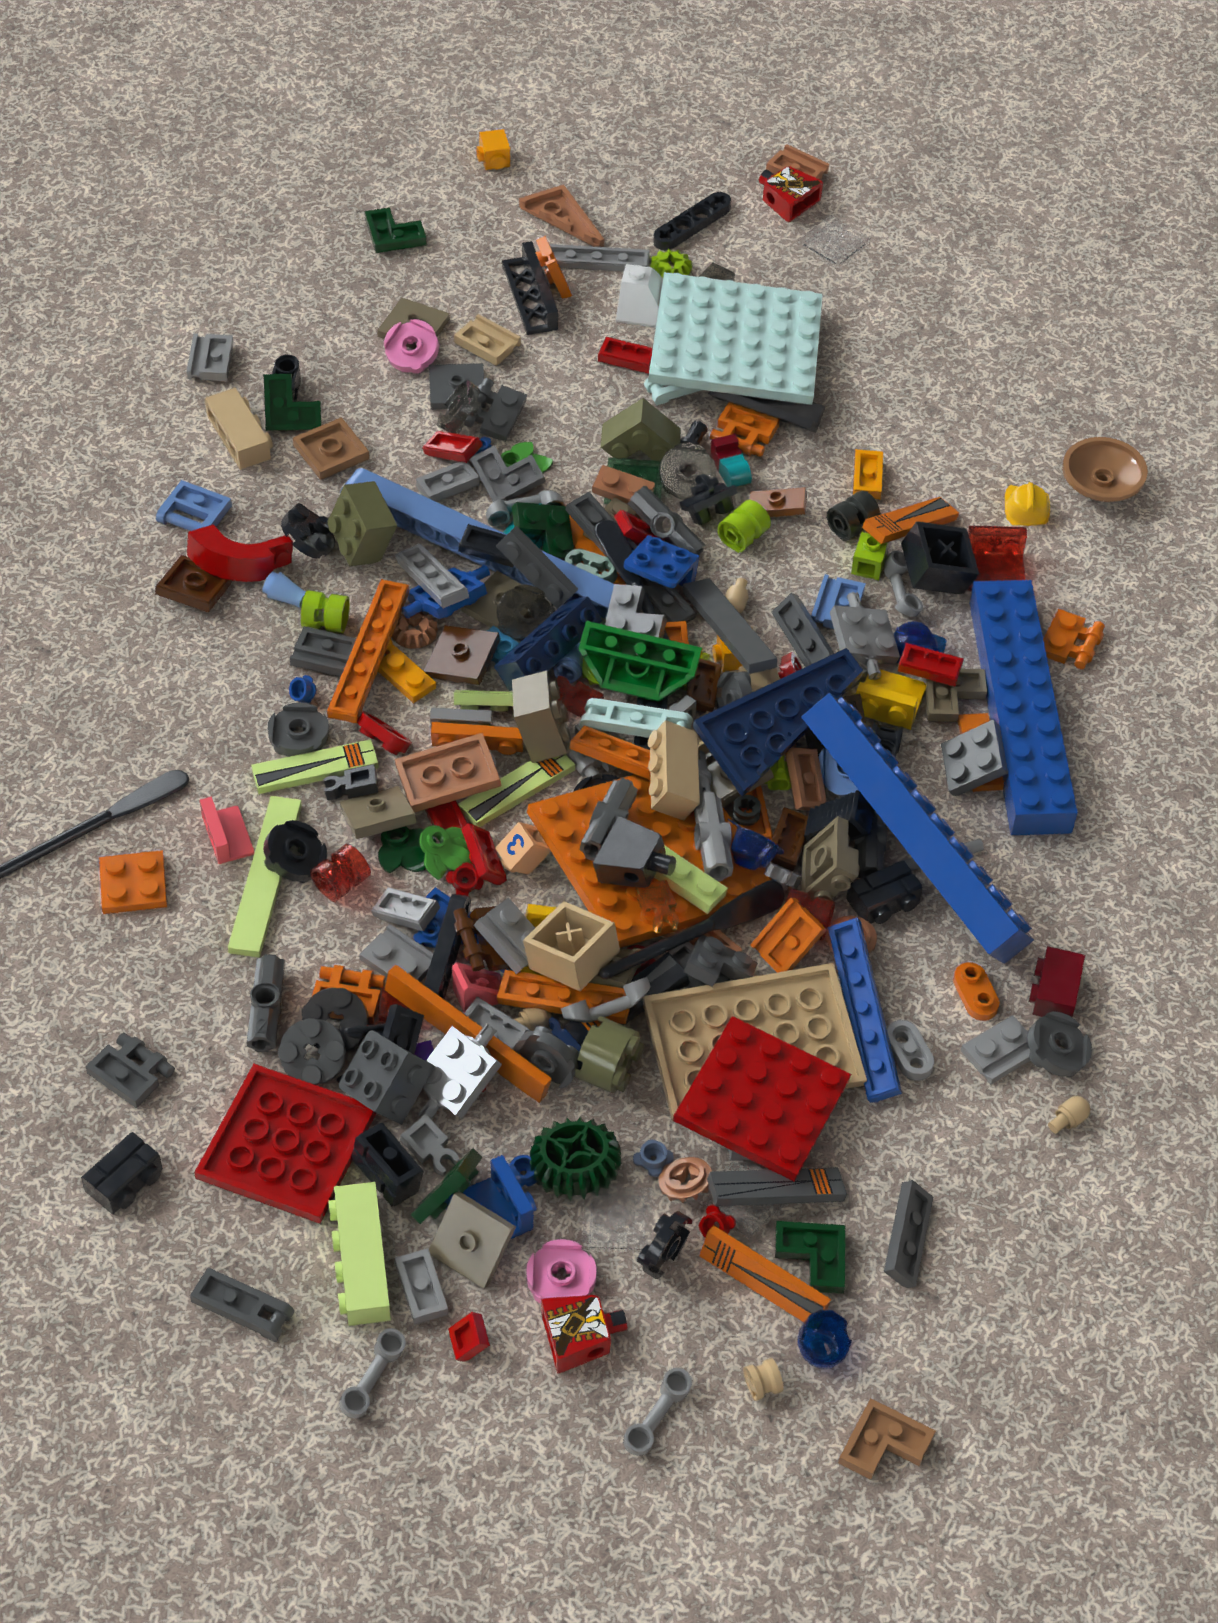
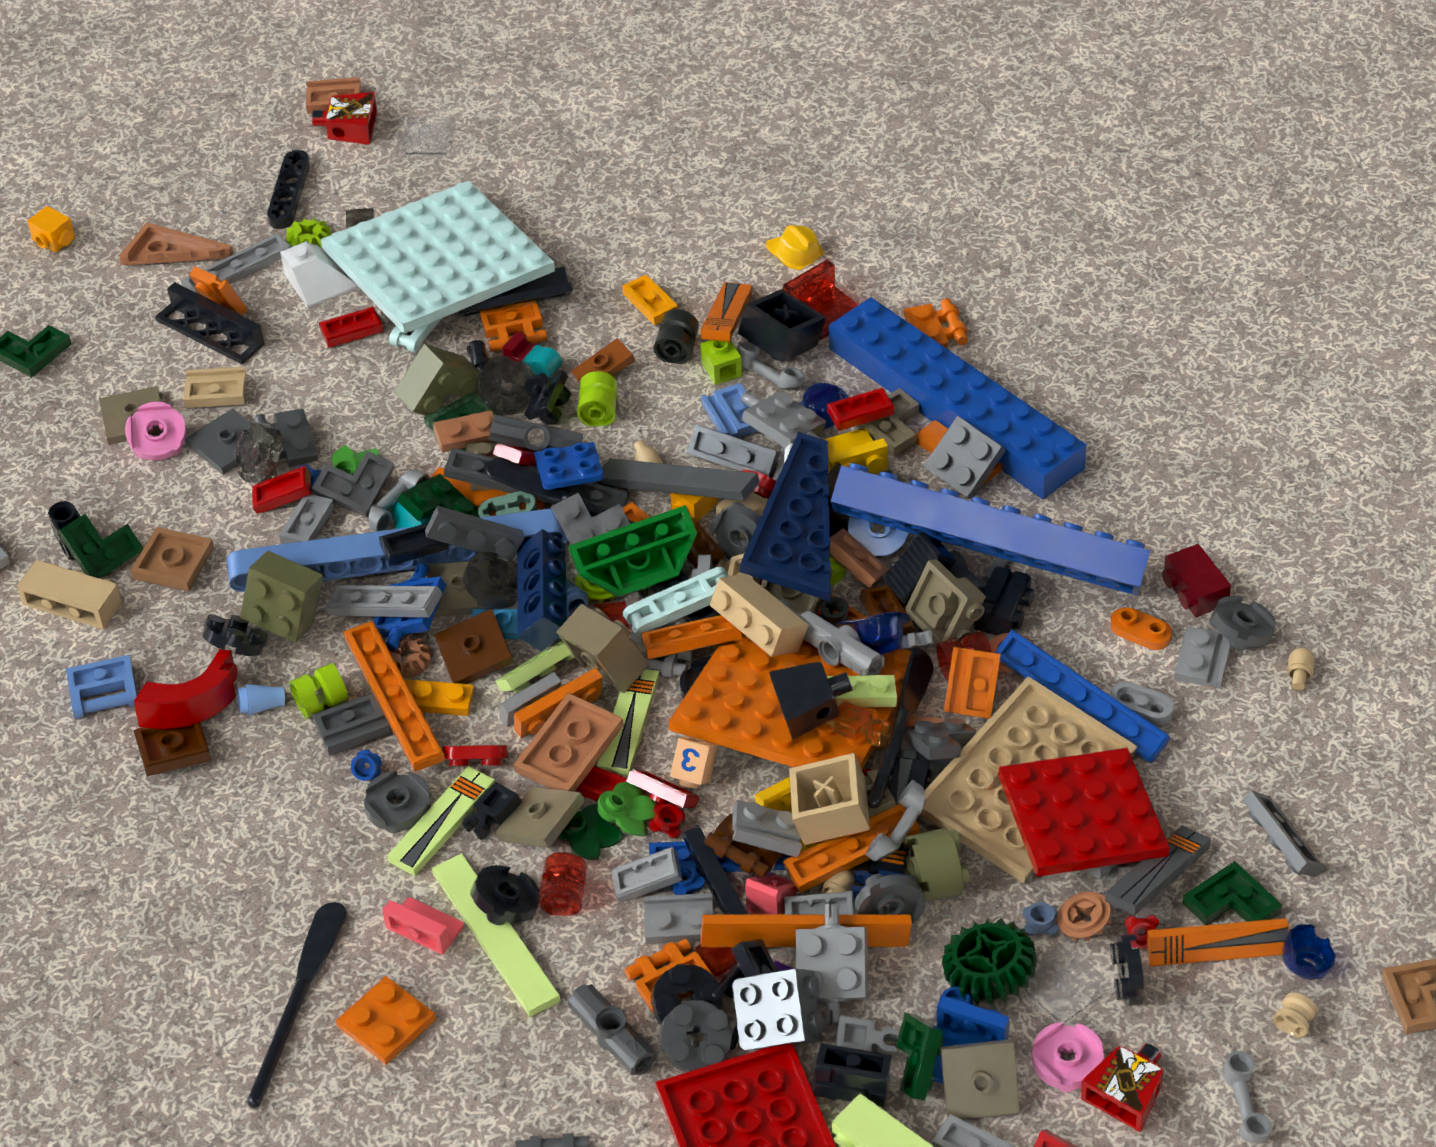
camera: 35 degrees left, 5 degrees down
(615, 803) = (751, 685): dark grey piece -> none
(1104, 469) = (833, 182): medium nougat dish -> none

